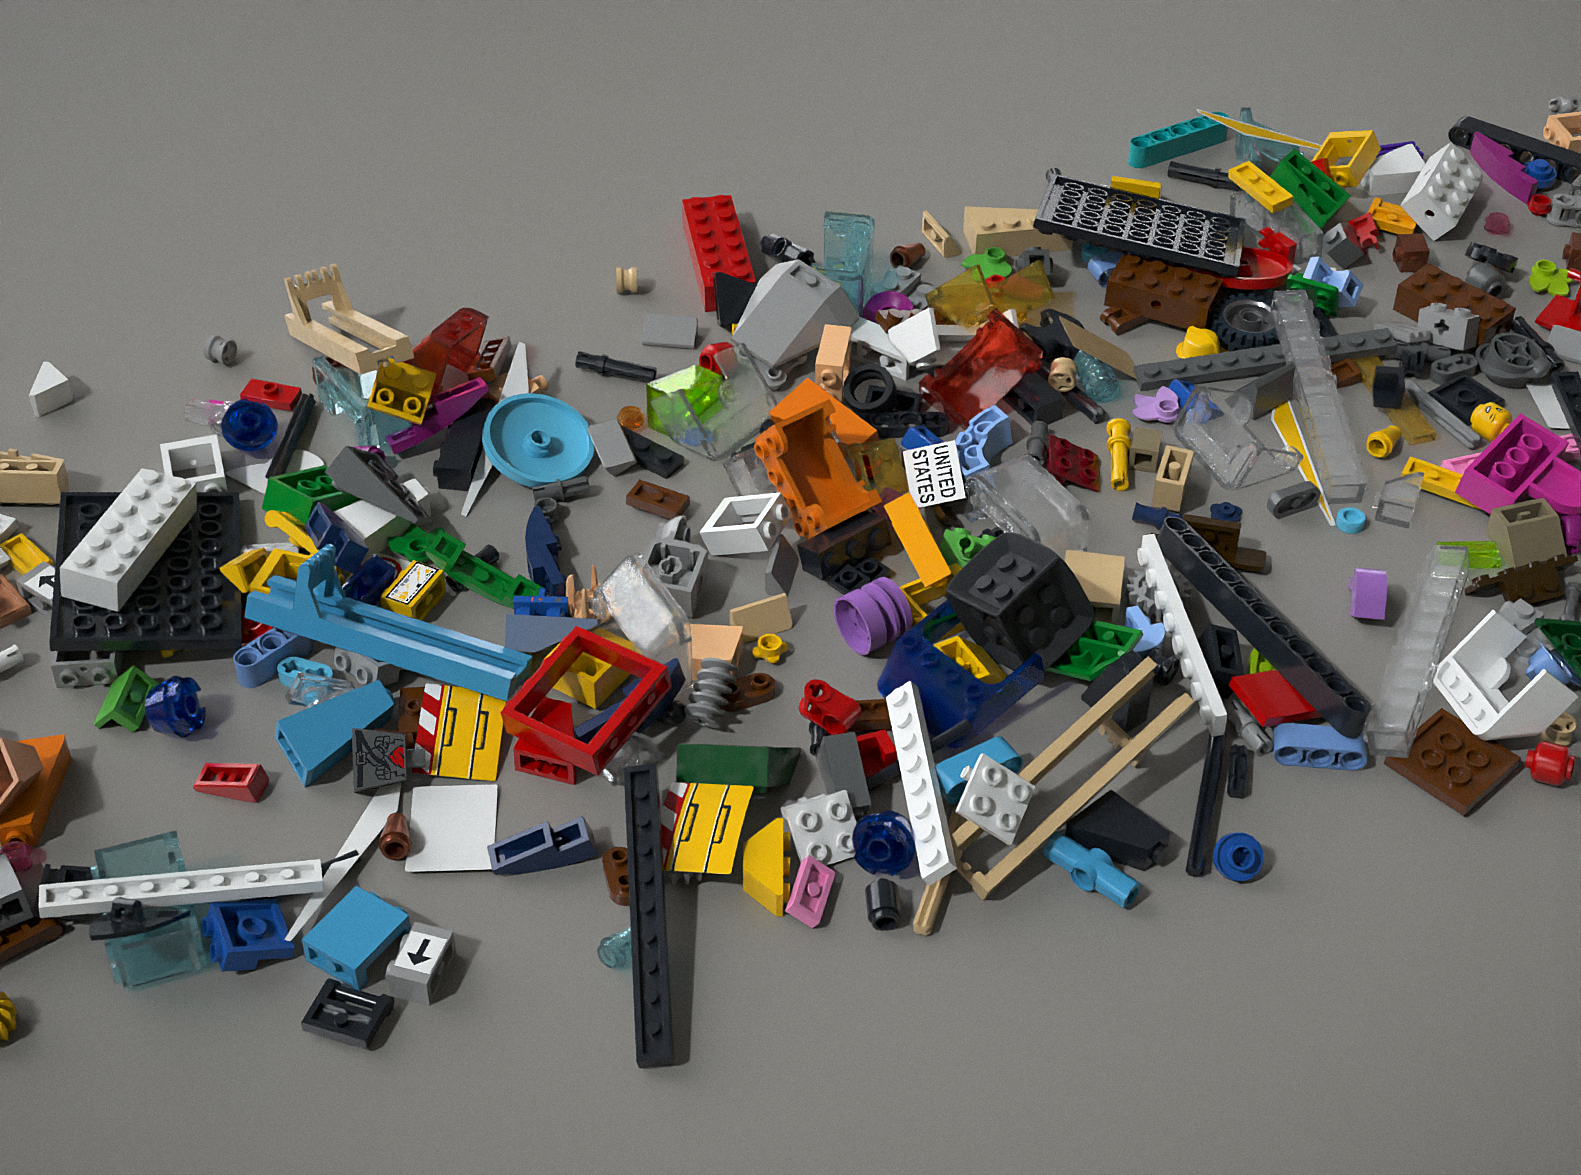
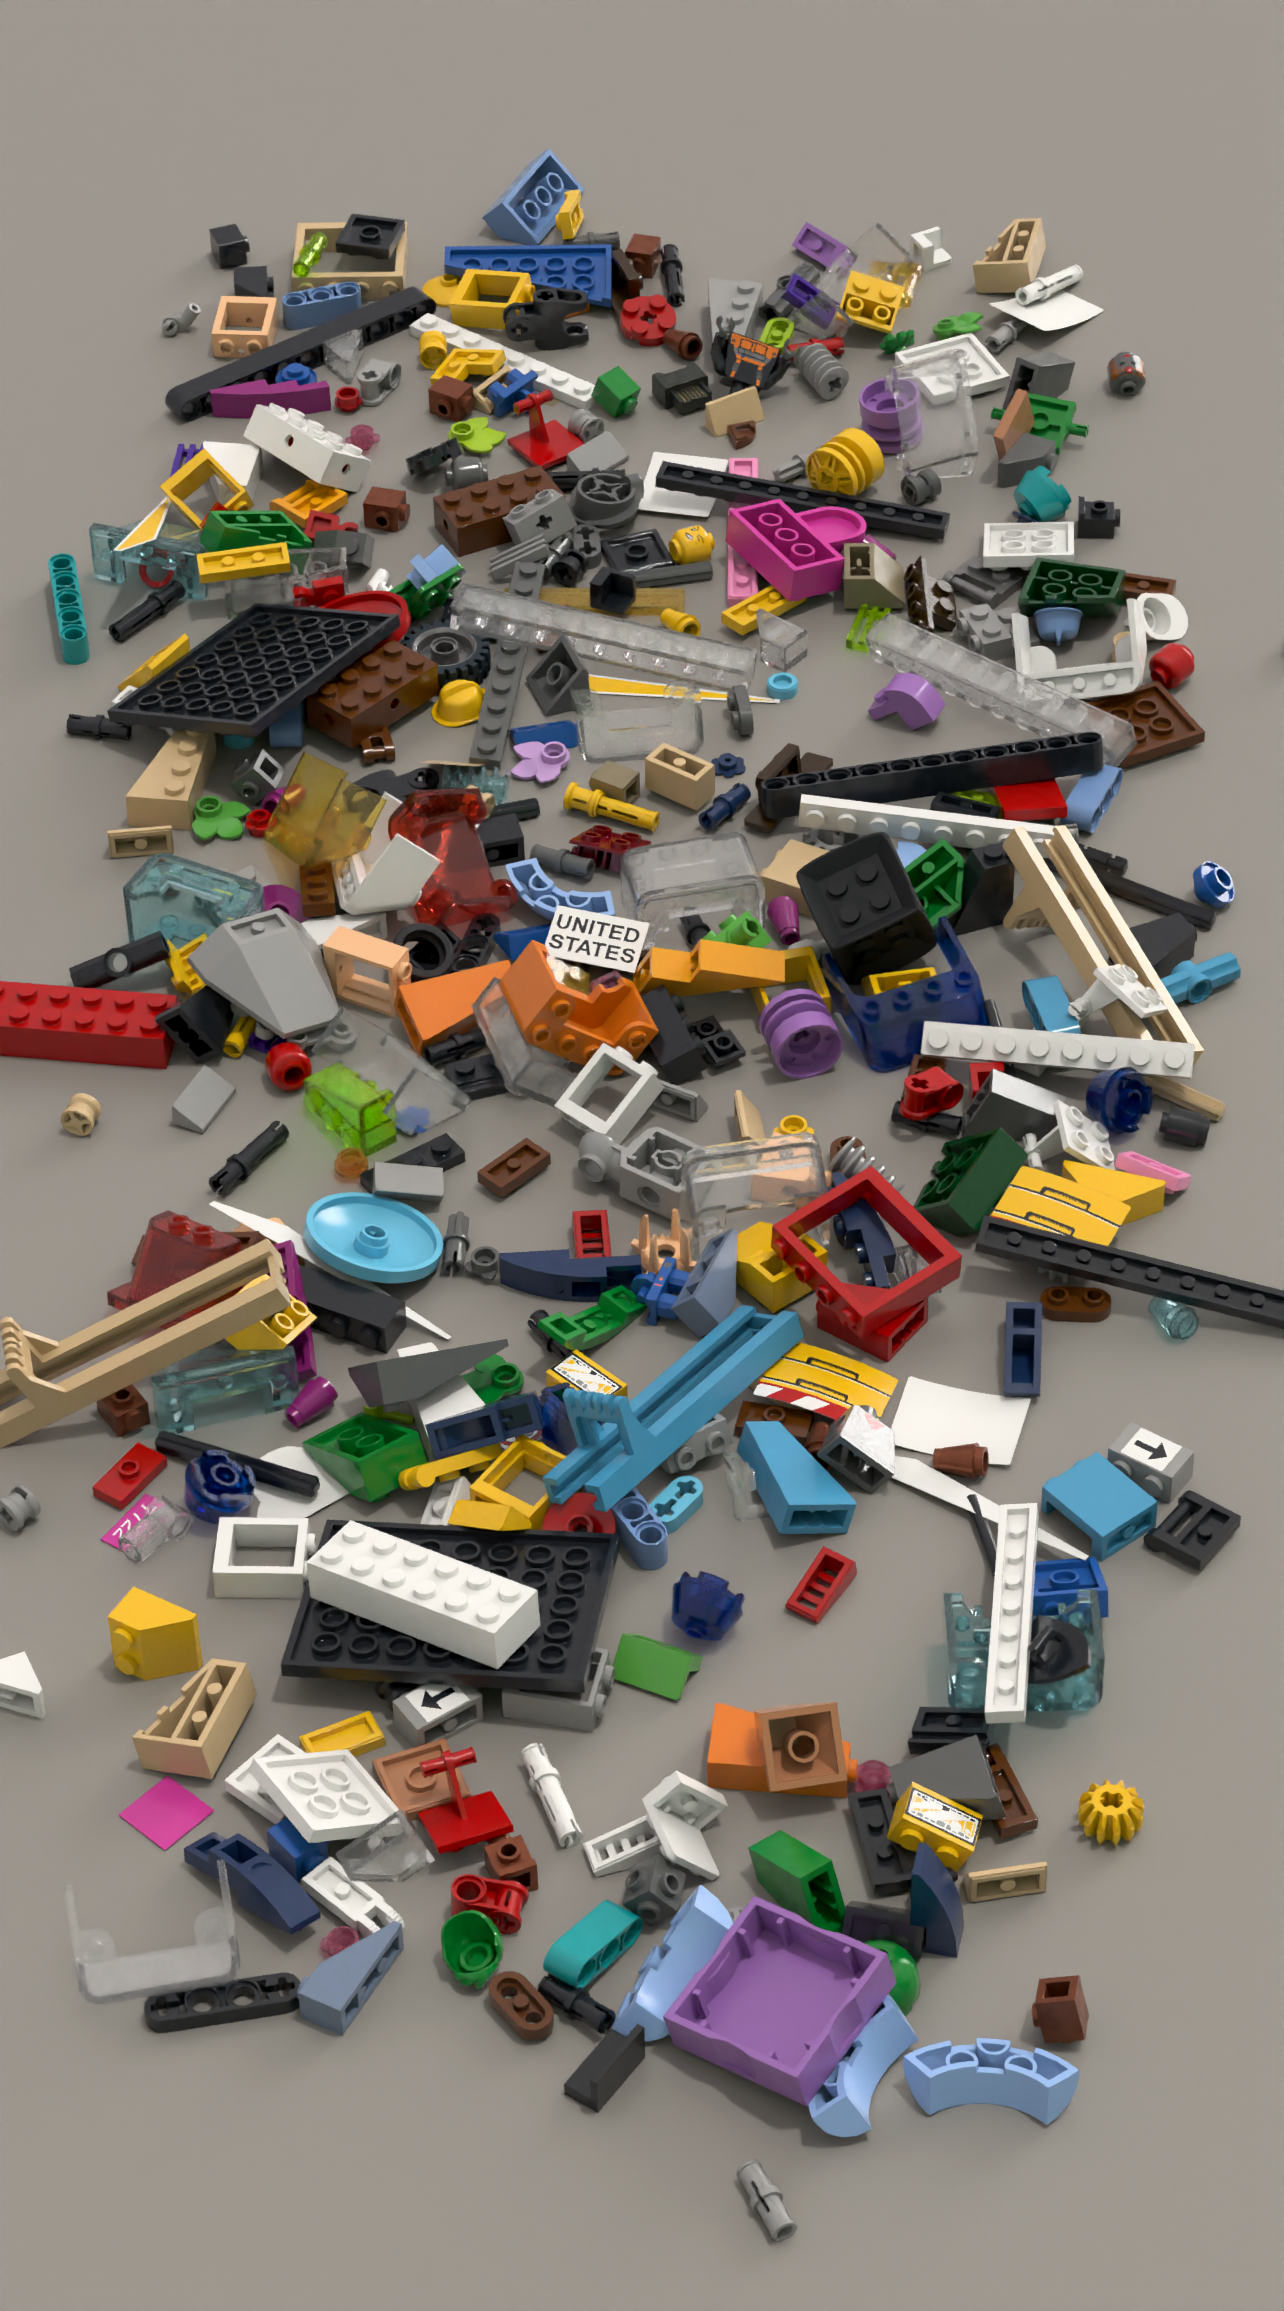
camera: 70 degrees left, 0 degrees up
(93, 429) = (153, 1637): none -> yellow slope
(602, 553) = (591, 1221): none -> red slope

